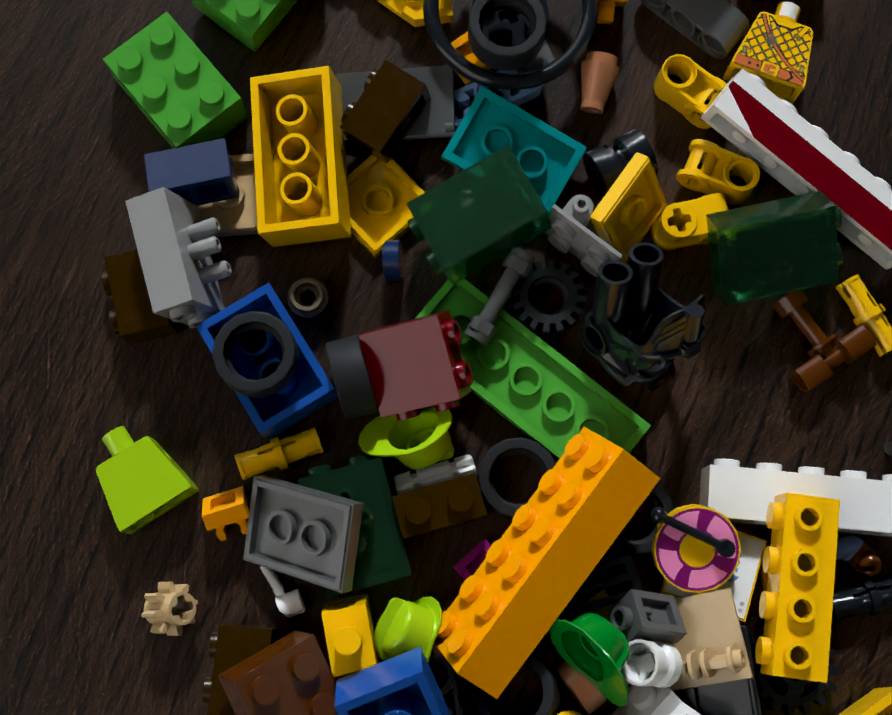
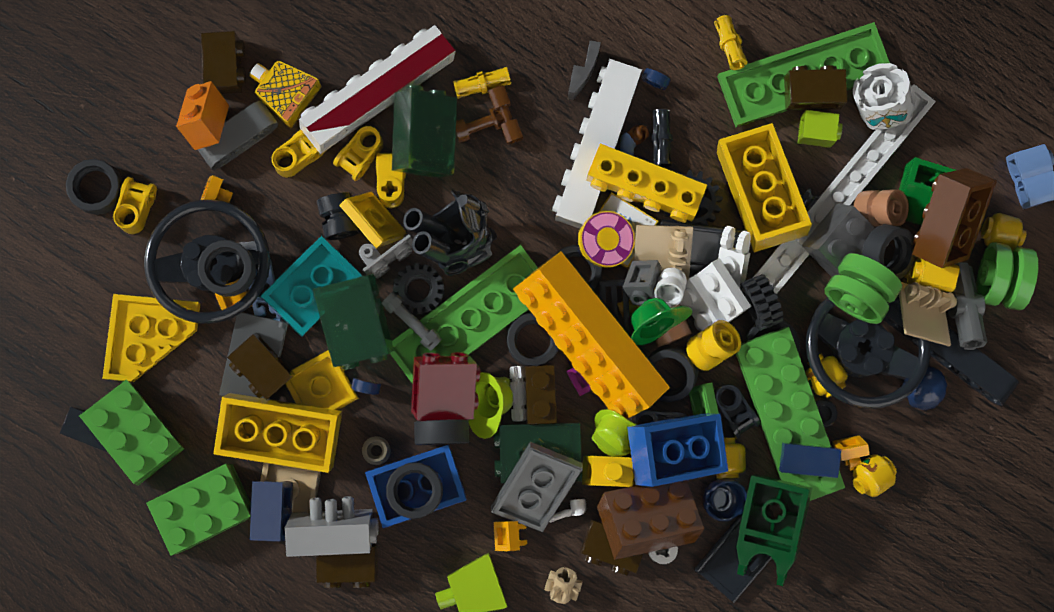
camera: 80 degrees left, 5 degrees up
(278, 453) = (478, 493): yellow pin -> none
(597, 80) = (271, 214): nougat cone -> none
(724, 546) = (610, 221): black hinge -> none

